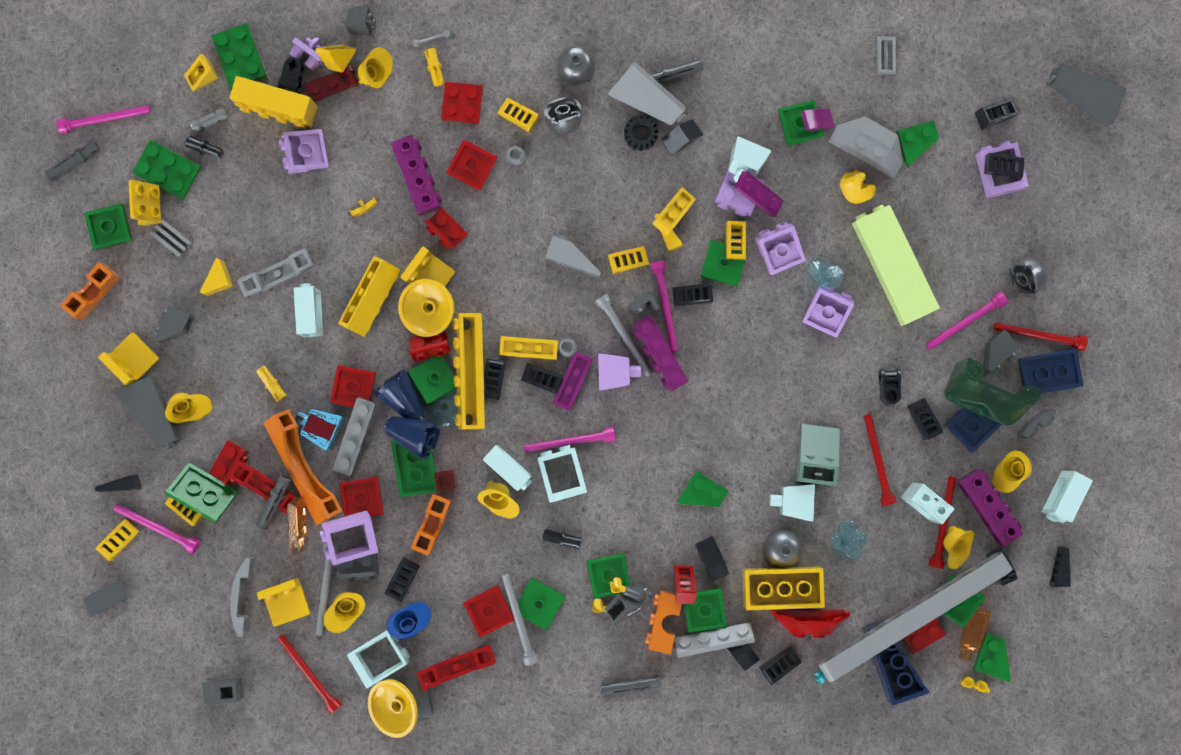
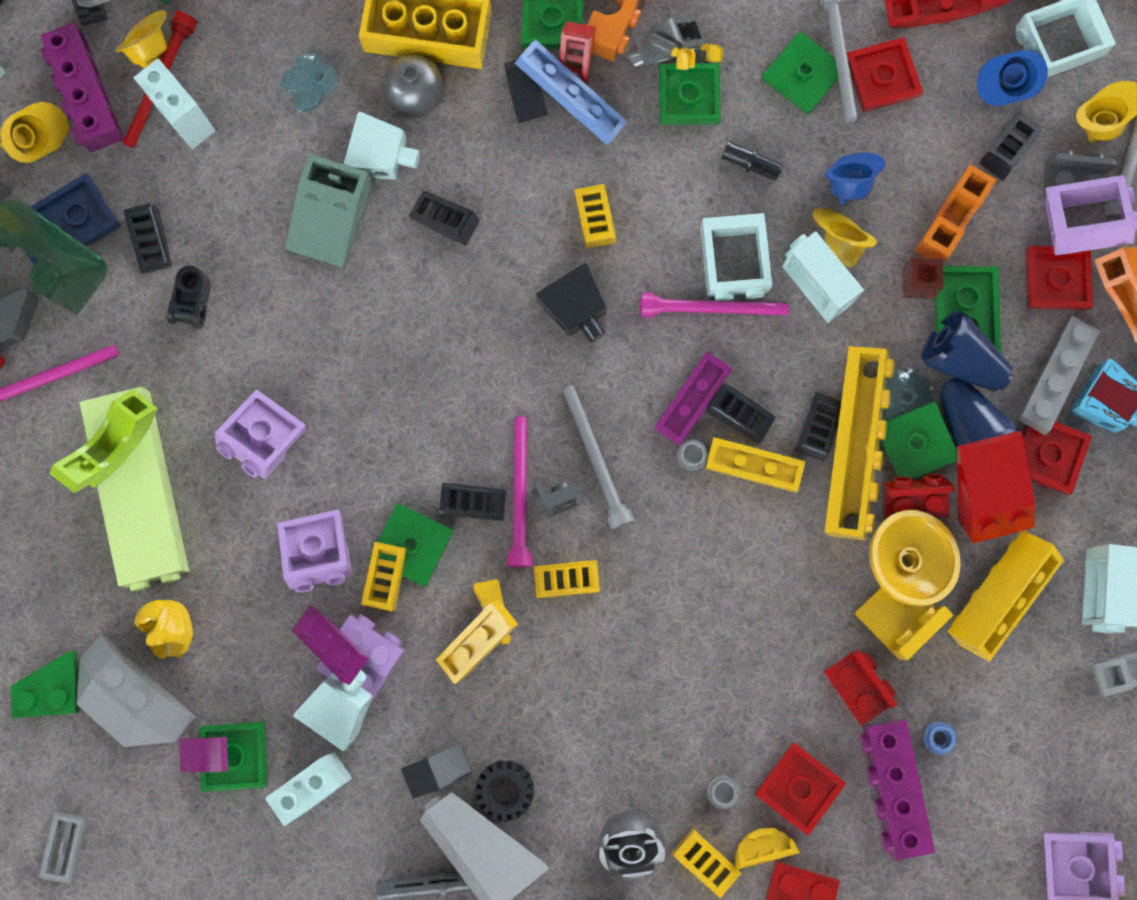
camera: 165 degrees left, 5 degrees down
(364, 208) = (990, 750): yellow piece -> none
(385, 356) = (994, 487): none -> red slope
(391, 204) = (949, 738): none -> medium blue plate
(488, 129) = (763, 846): none -> yellow tile
(497, 540) = (854, 176): none -> blue piece
(568, 255) = (666, 605): light grey slope -> none
(615, 371) = (622, 400): lavender torso -> none
(641, 473) = (599, 238): none -> yellow slope
(654, 426) = (575, 303): none -> black torso
(660, 352) = (544, 416): magenta brick -> none
(683, 559) = (570, 92): none -> medium blue plate
(702, 492) = (520, 192): green wing -> none
(731, 461) = (460, 228): none -> black slope
(752, 111) = (308, 788): none -> light aqua window
(825, 274) = (250, 493): clear light blue dish -> none
(887, 496) = (235, 131): red piece -> none
(915, 281) = (110, 446): none -> lime arch

